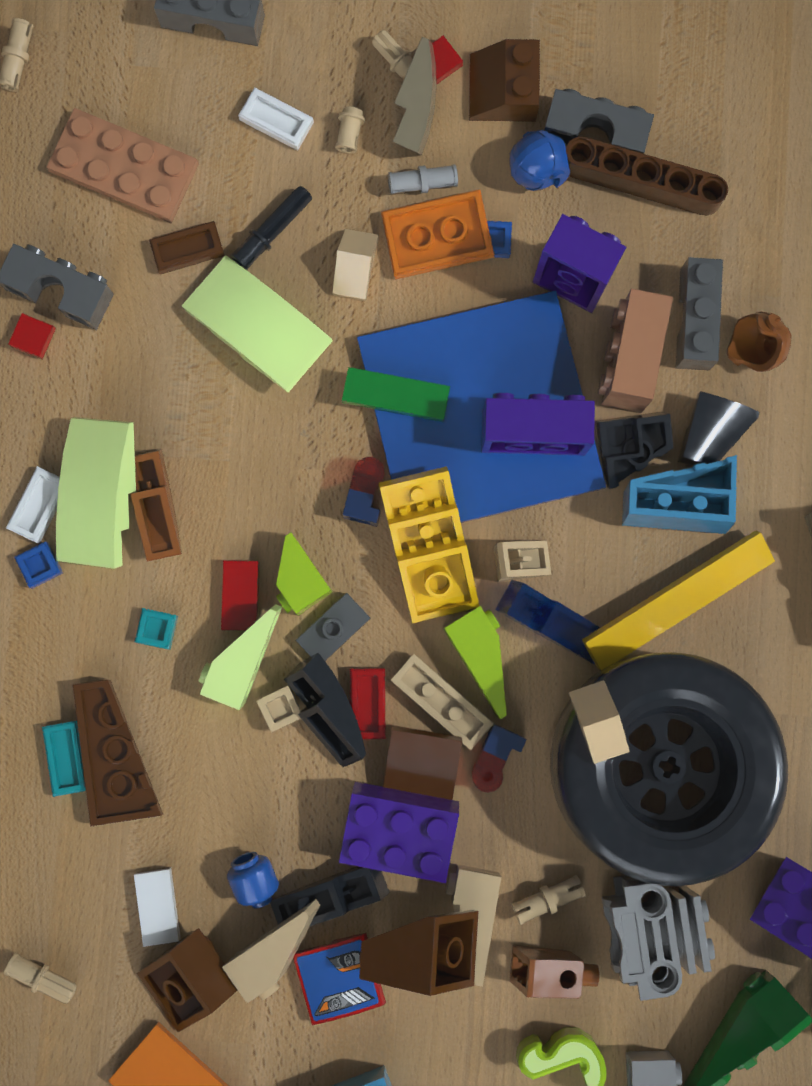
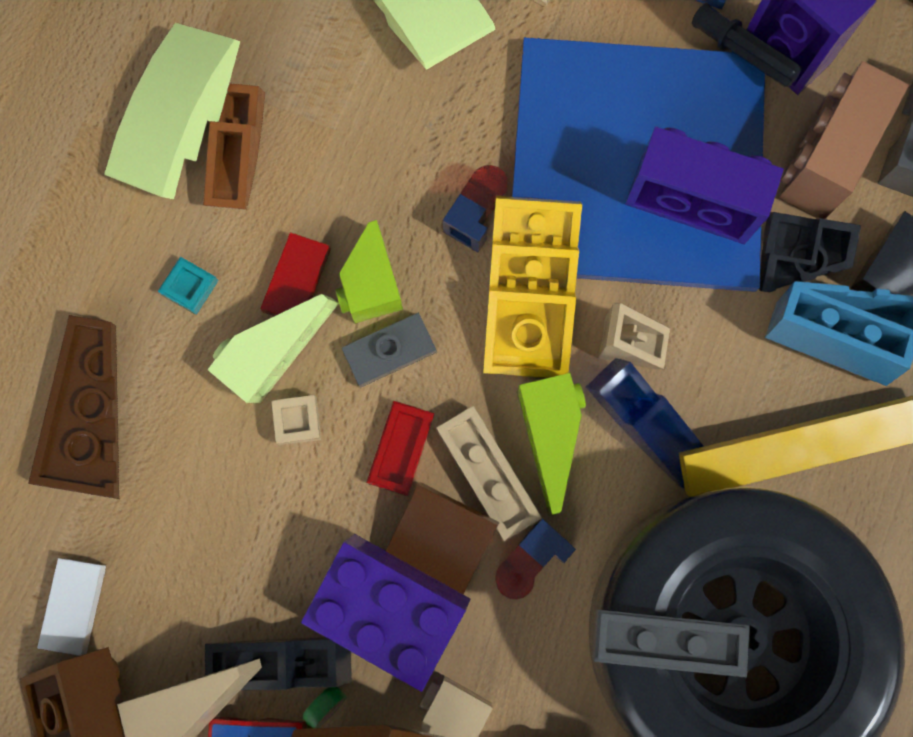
camera: 20 degrees right, 5 degrees down
(36, 506) = (102, 112): white tile -> none
(38, 565) = (83, 174): blue tile -> none
(64, 758) = (28, 397): teal tile -> none
(252, 880) = (193, 611): blue head -> none
(327, 709) = (350, 439): black slope -> none
(375, 917) = (324, 707): none -> green tile
(395, 394) = (547, 109): green tile -> none
(537, 289) = (746, 45): none -> black axle
(599, 721) = (679, 549): tan slope -> none
(613, 791) = (671, 643): none -> dark grey tile

